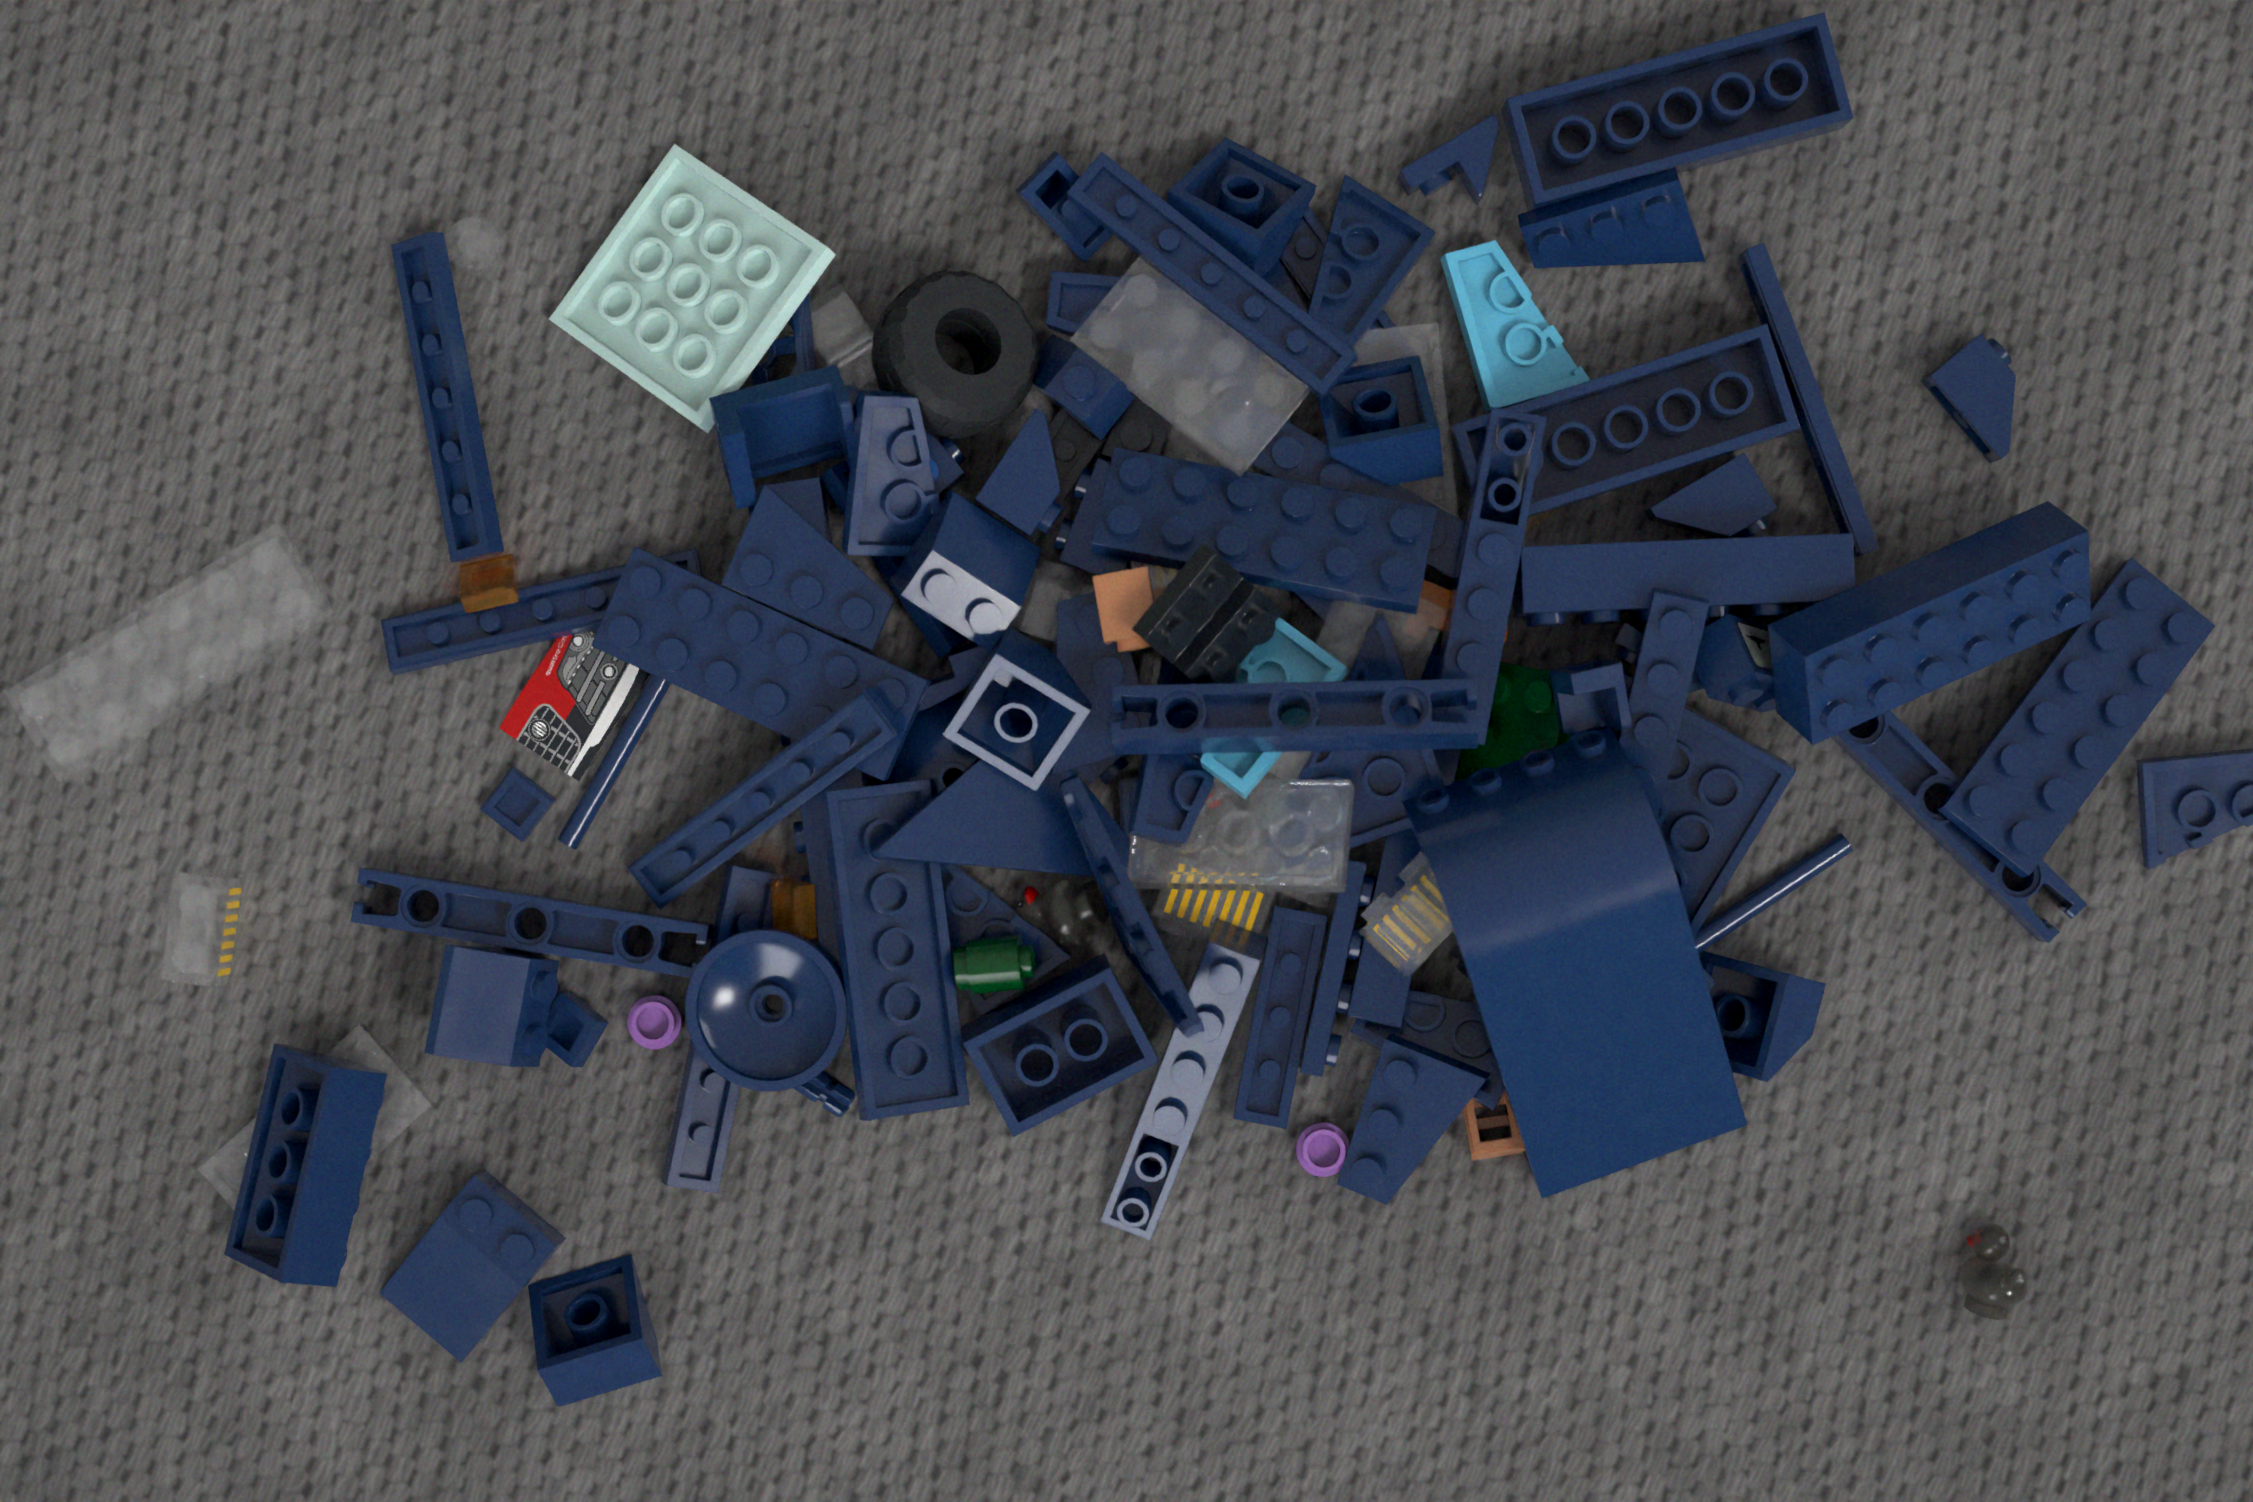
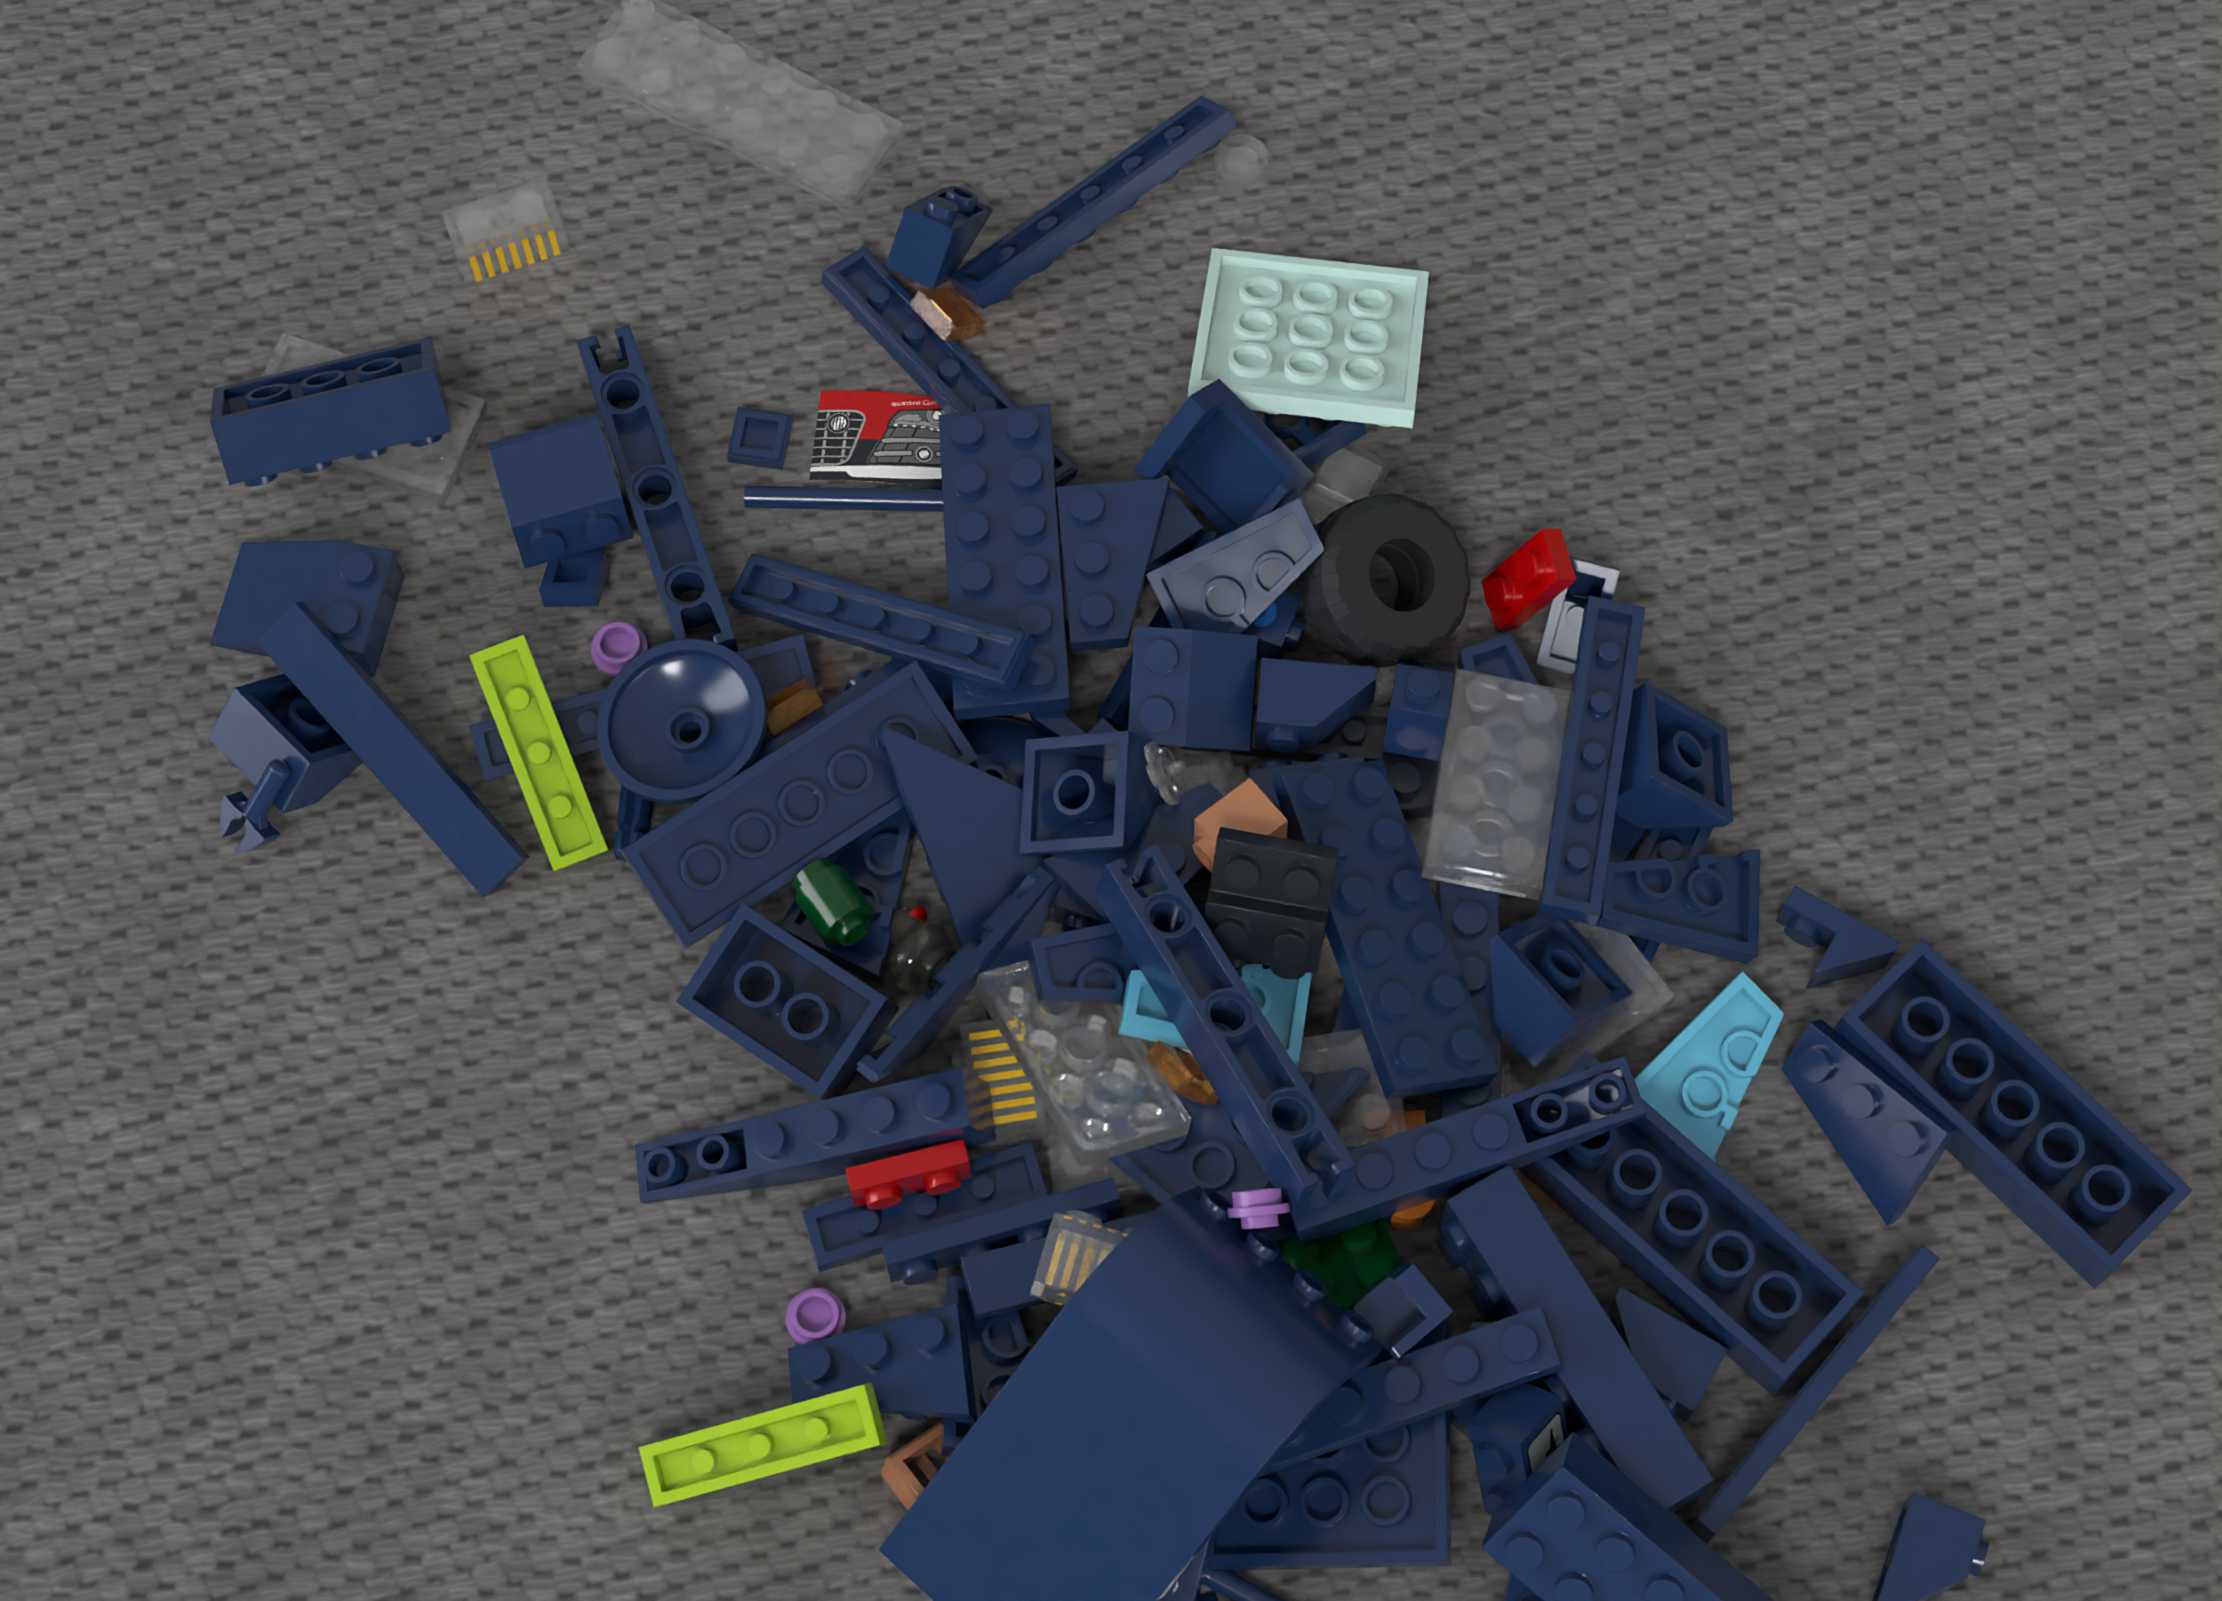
camera: 60 degrees right, 20 degrees down
(408, 552) = (937, 235): none -> dark blue slope
(634, 1409) = (254, 810): none -> dark blue bar
(654, 1259) = (393, 749): none -> dark blue tile
(724, 1139) = (539, 753): none -> lime plate
(1016, 230) = (1528, 580): none -> red plate
(1037, 637) = (1165, 772): none -> clear plant
(1265, 999) = (886, 1180): none -> red plate
(1304, 768) = (1181, 1073): none -> clear orange tile
(1412, 1246) = (763, 1444): none -> lime plate
(1460, 772) = (1258, 1207): none -> medium lavender plate

